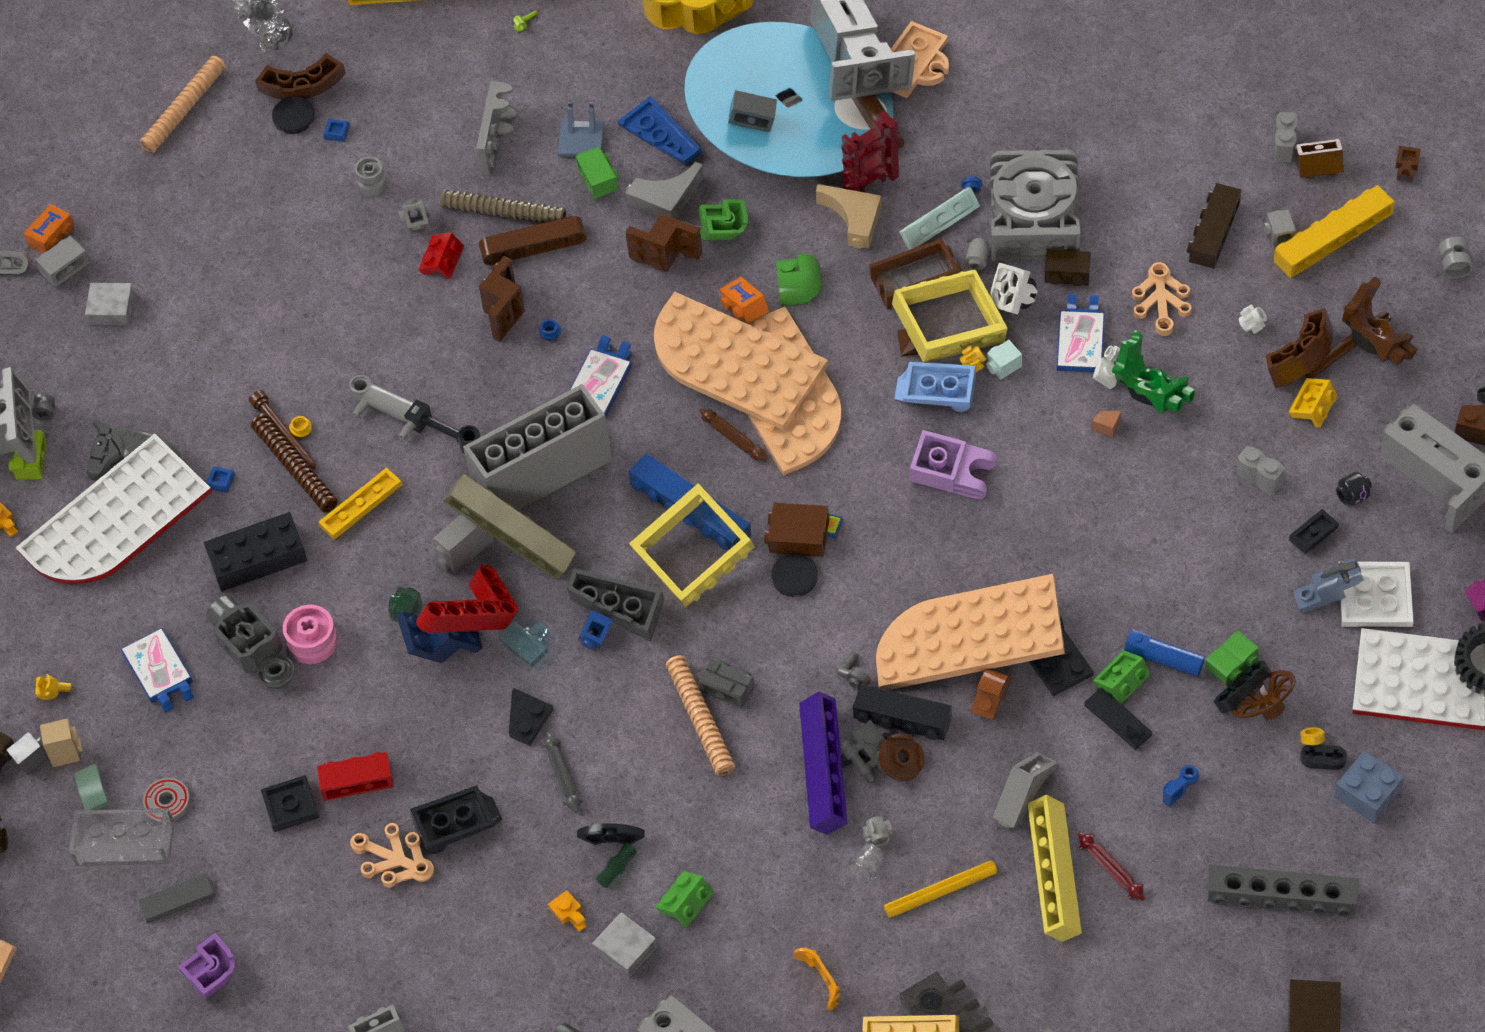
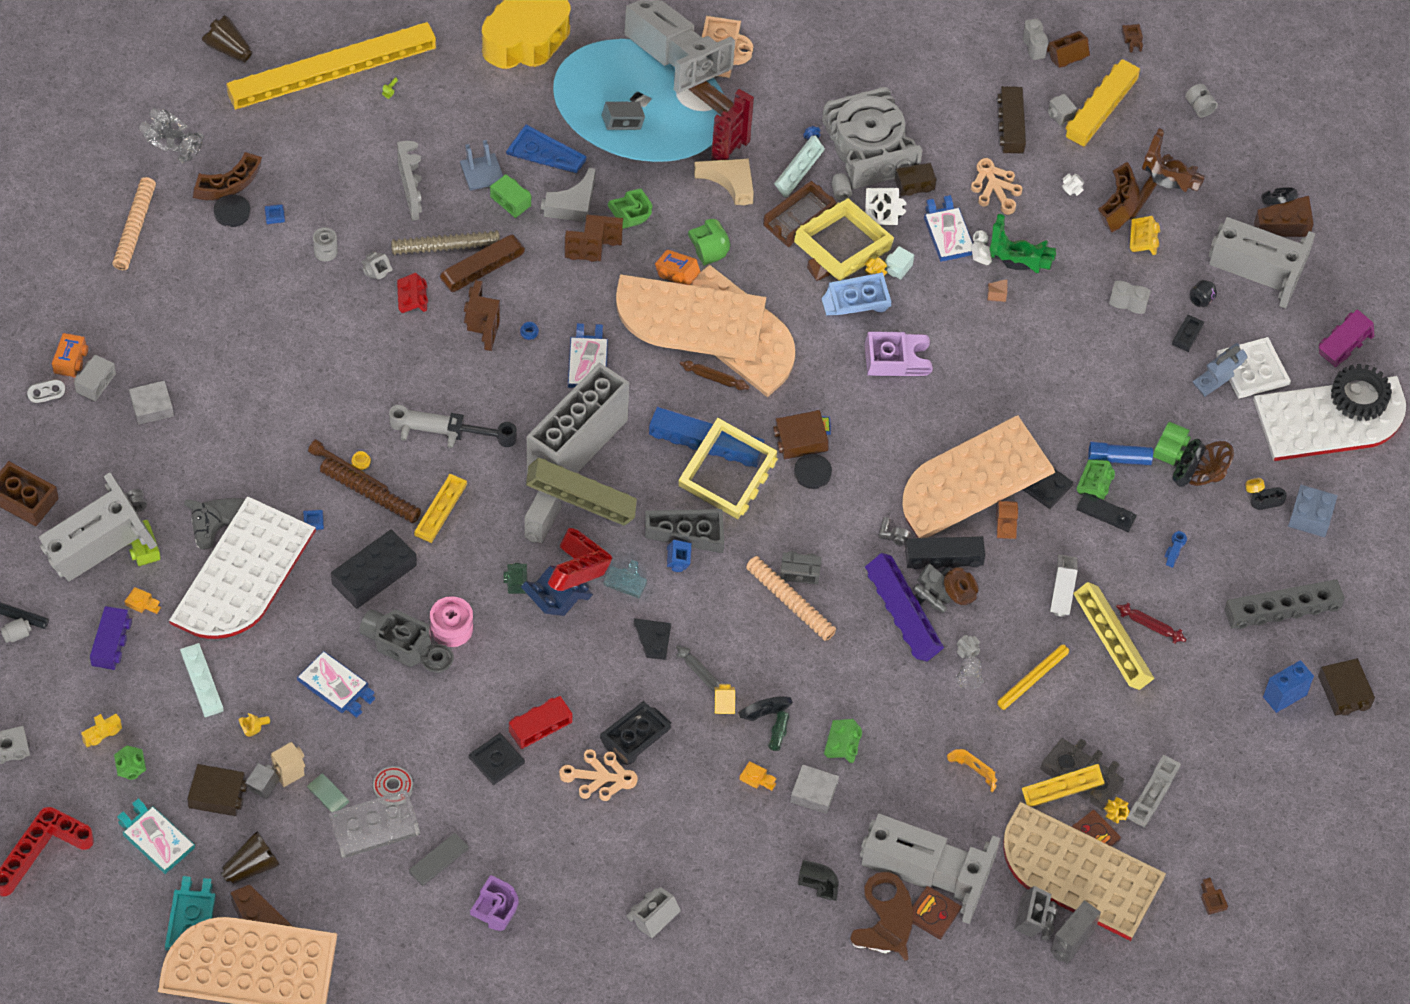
camera: 30 degrees left, 0 degrees up
(21, 623) = (201, 680): none -> light aqua plate
(568, 810) = (724, 699): none -> yellow brick
(1238, 991) = (1288, 686): none -> blue piece

